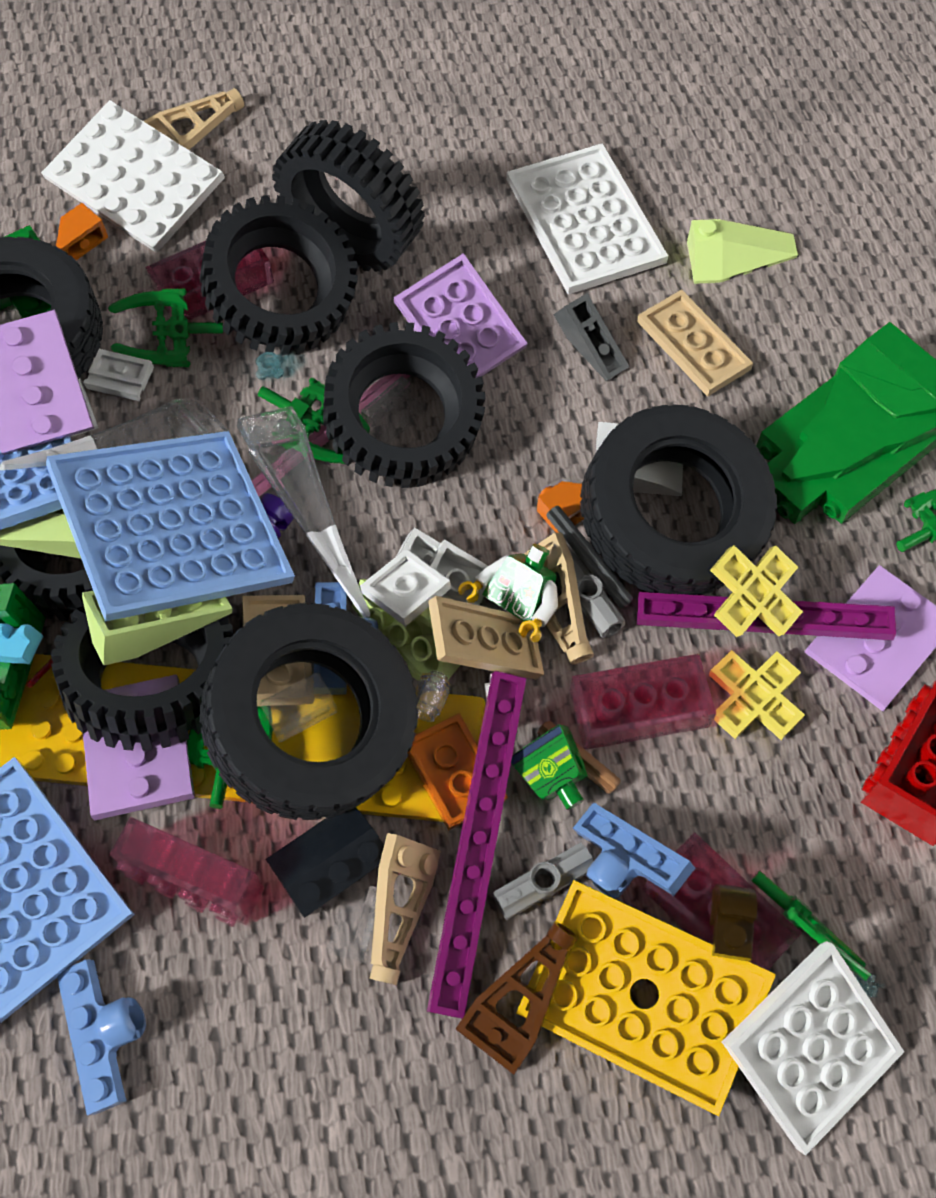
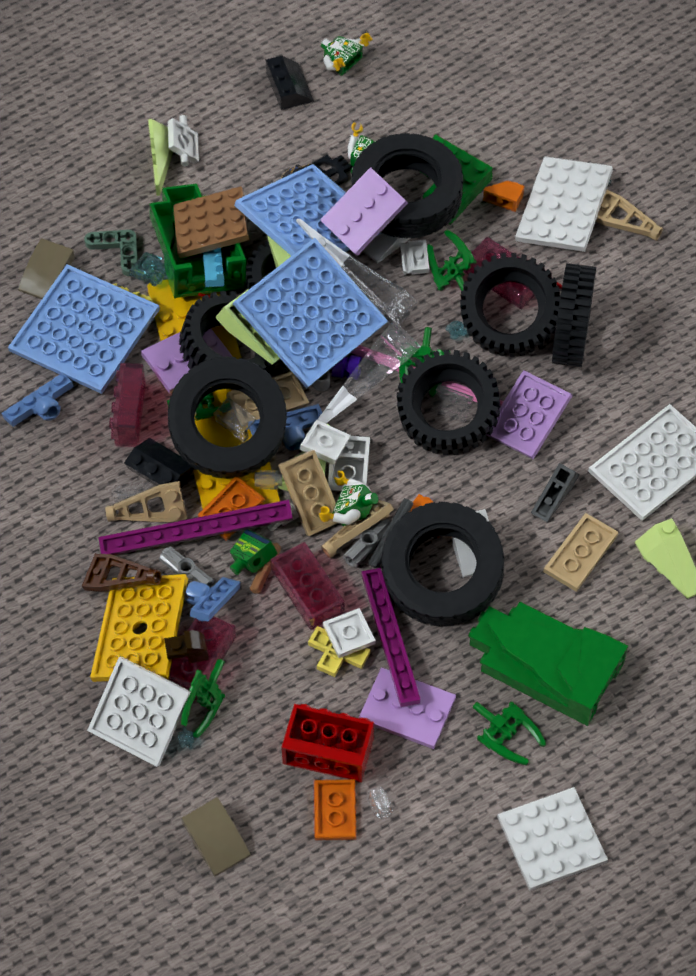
camera: 70 degrees right, 5 degrees down
(748, 668) = (349, 633): none -> white plate
(756, 591) = (394, 617): light yellow plate -> none

